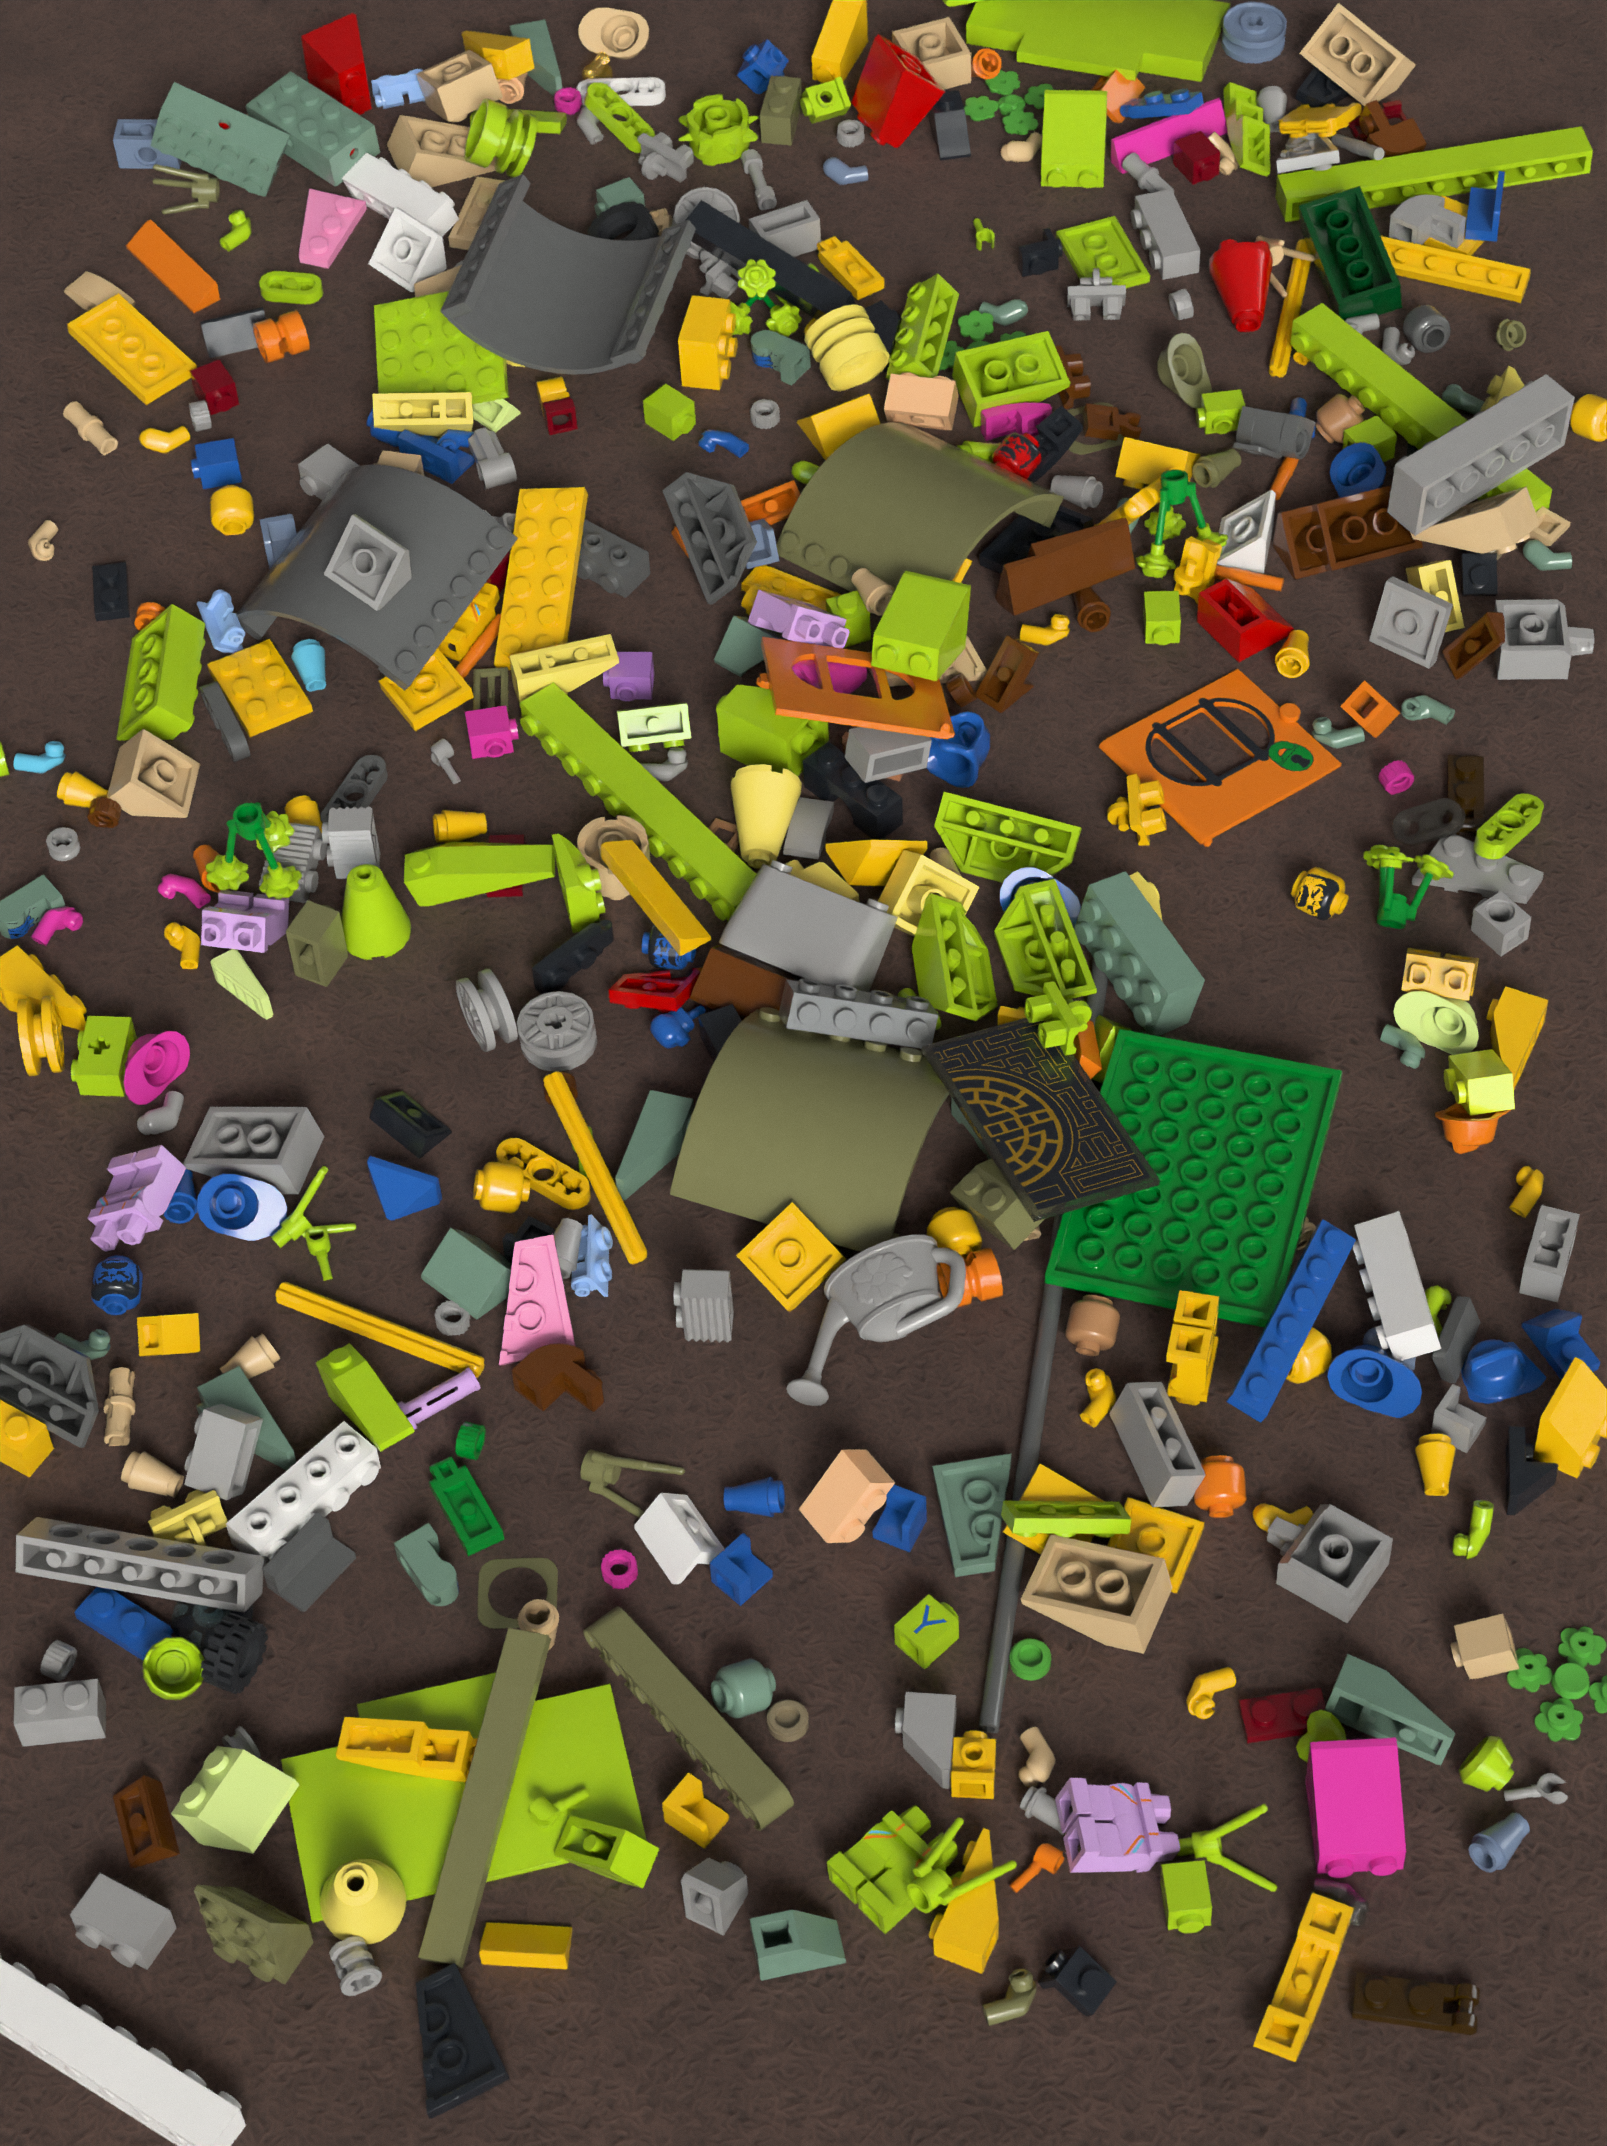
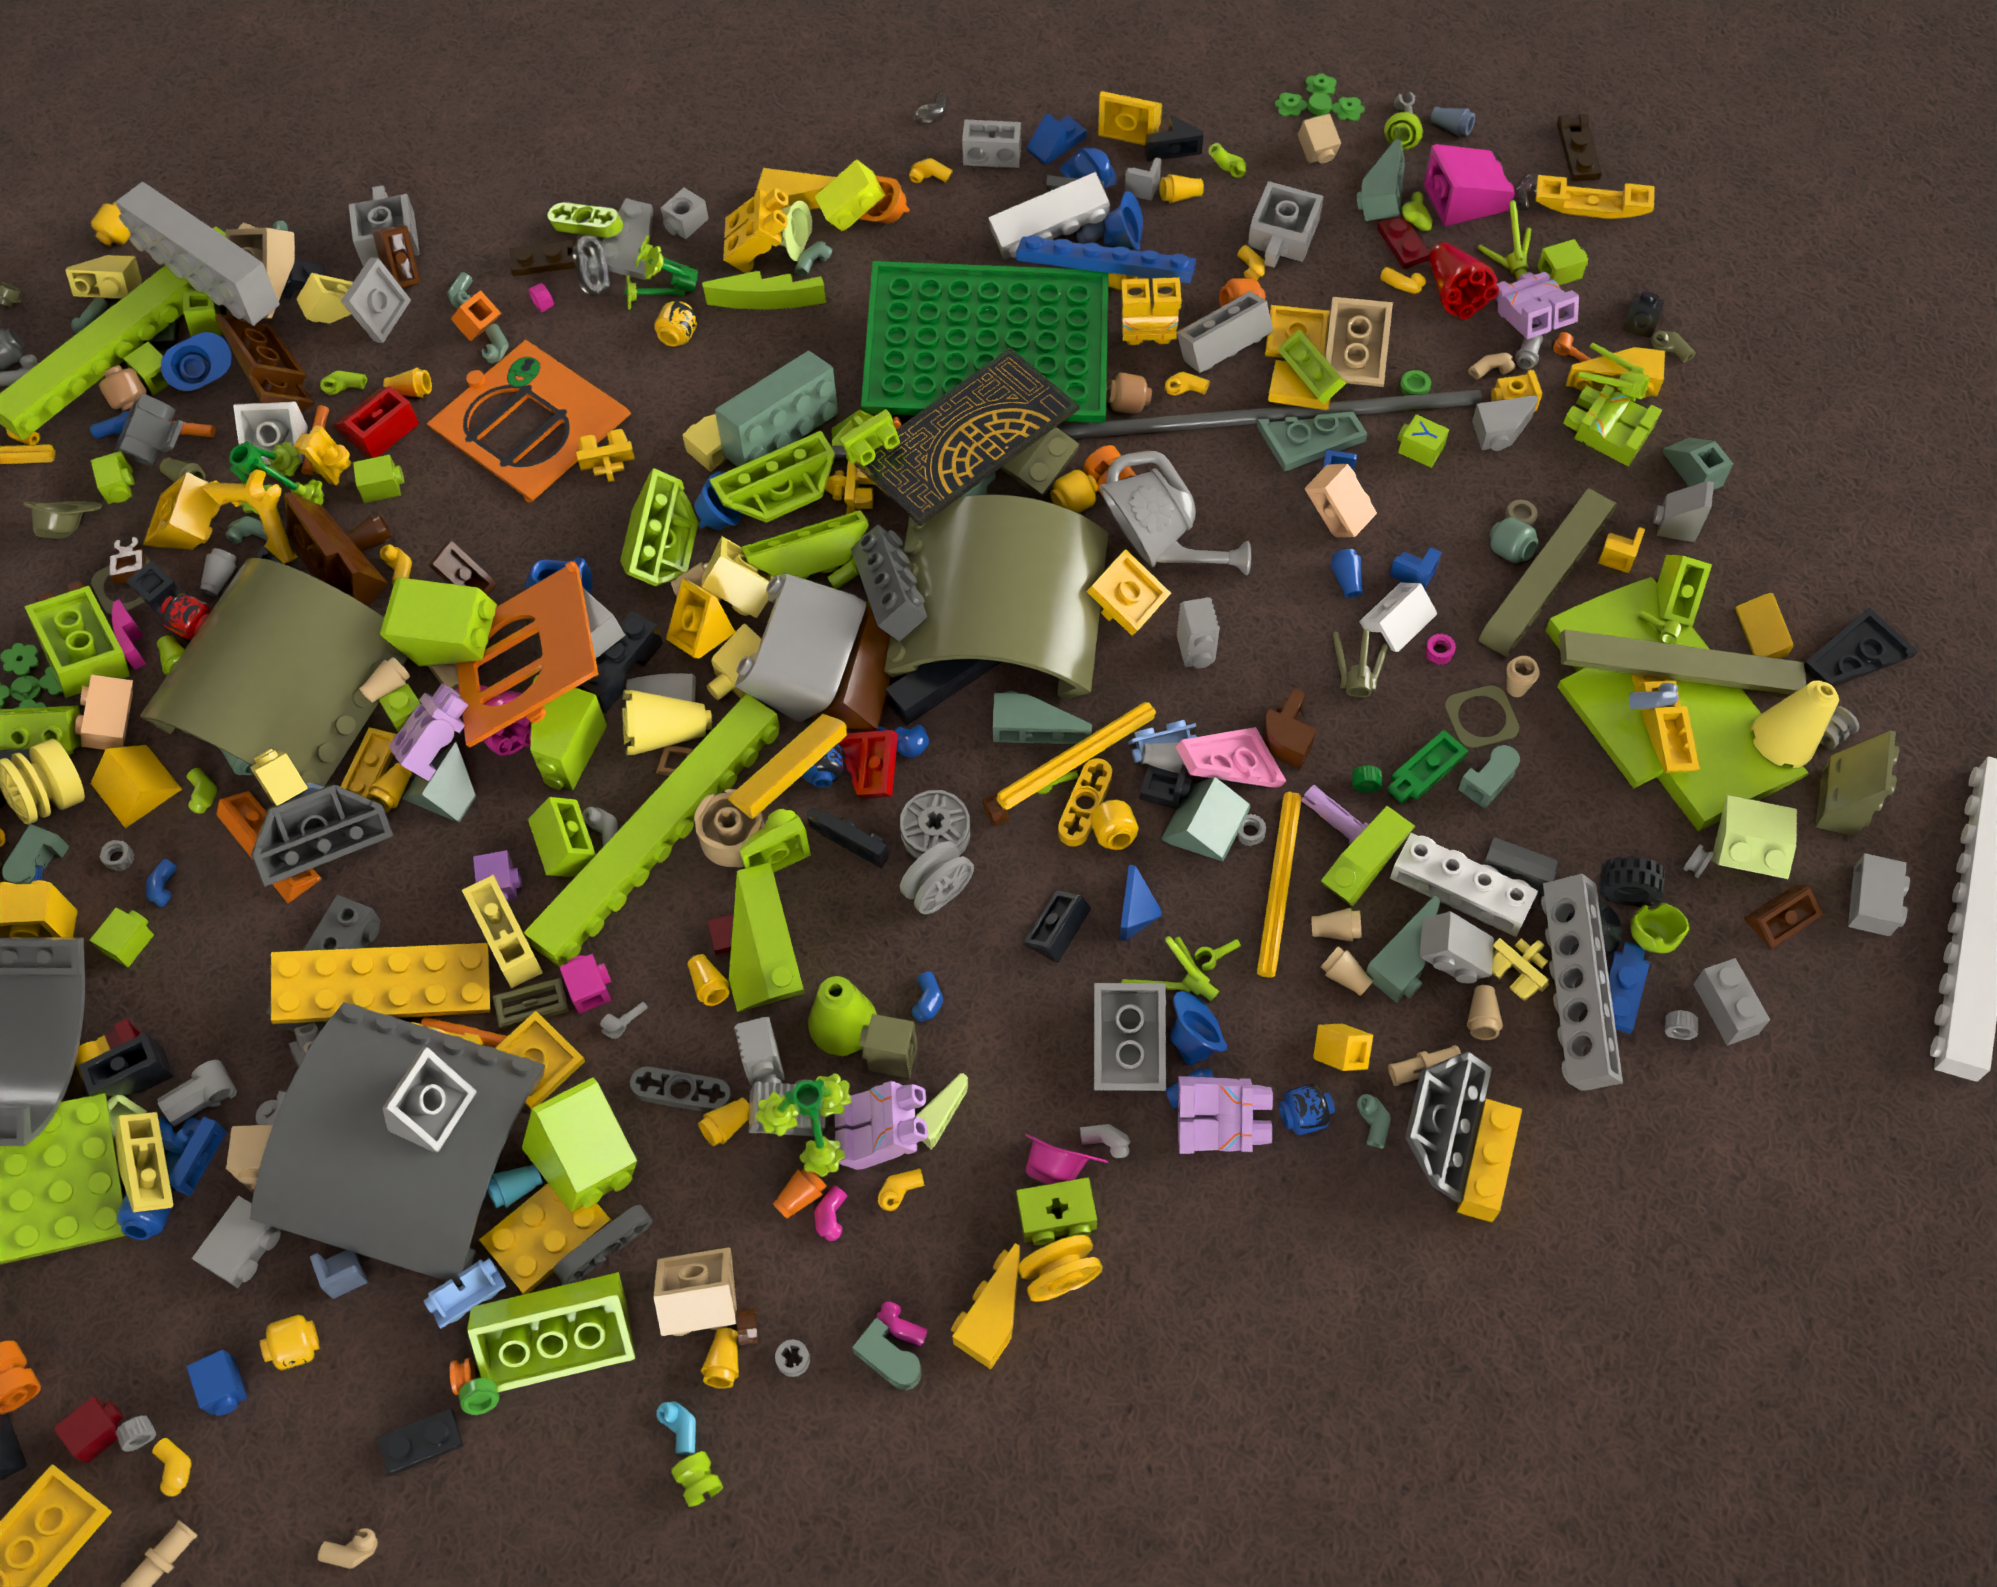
camera: 105 degrees left, 10 degrees up
(126, 625) = (478, 1396): none -> bright green tile
(301, 1373) = (1338, 925): none -> tan cone
(312, 700) = (579, 1146): none -> slope
(368, 1001) = (930, 1000): none -> blue arm
(434, 1727) = (1664, 697): none -> sand blue arm
(527, 409) = (127, 1068): none -> black slope
(773, 498) = (277, 776): none -> light yellow brick
(1184, 1745) = (1462, 280): none -> red cone
(1316, 598) = (341, 380): none -> lime arm
(1354, 980) = (753, 292): none -> lime slope

